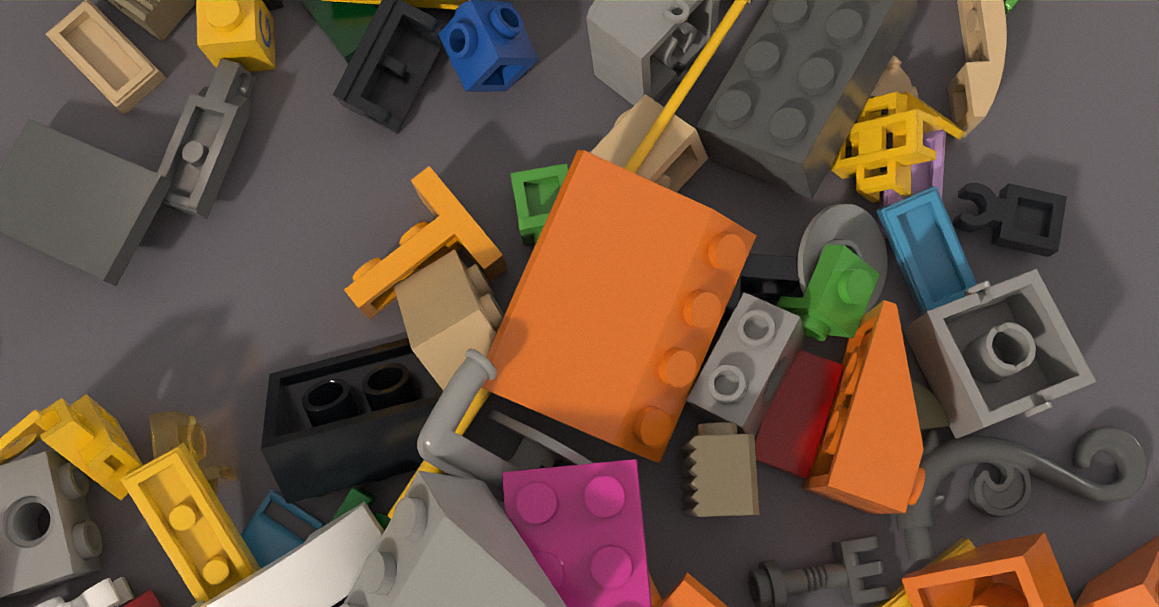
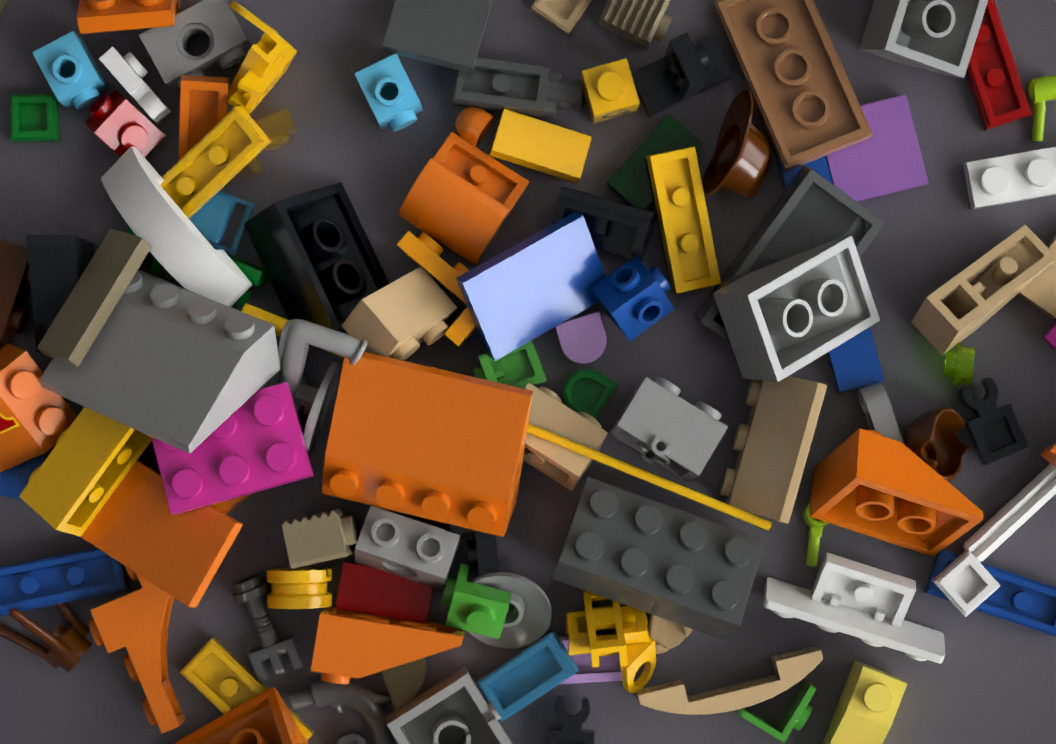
camera: 75 degrees right, 10 degrees up
(116, 530) = (201, 108): none -> orange tile
(170, 289) = (390, 93): none -> medium azure brick
(237, 198) = (473, 124): none -> orange hinge
(282, 124) = (540, 146): none -> yellow tile
(324, 223) = (462, 198): none -> orange brick
(446, 152) = (533, 285): none -> tile
(525, 120) = (582, 338): none -> lavender tile
(587, 122) = (588, 391): none -> green tile
(782, 520) = (299, 588): none -> yellow wheel

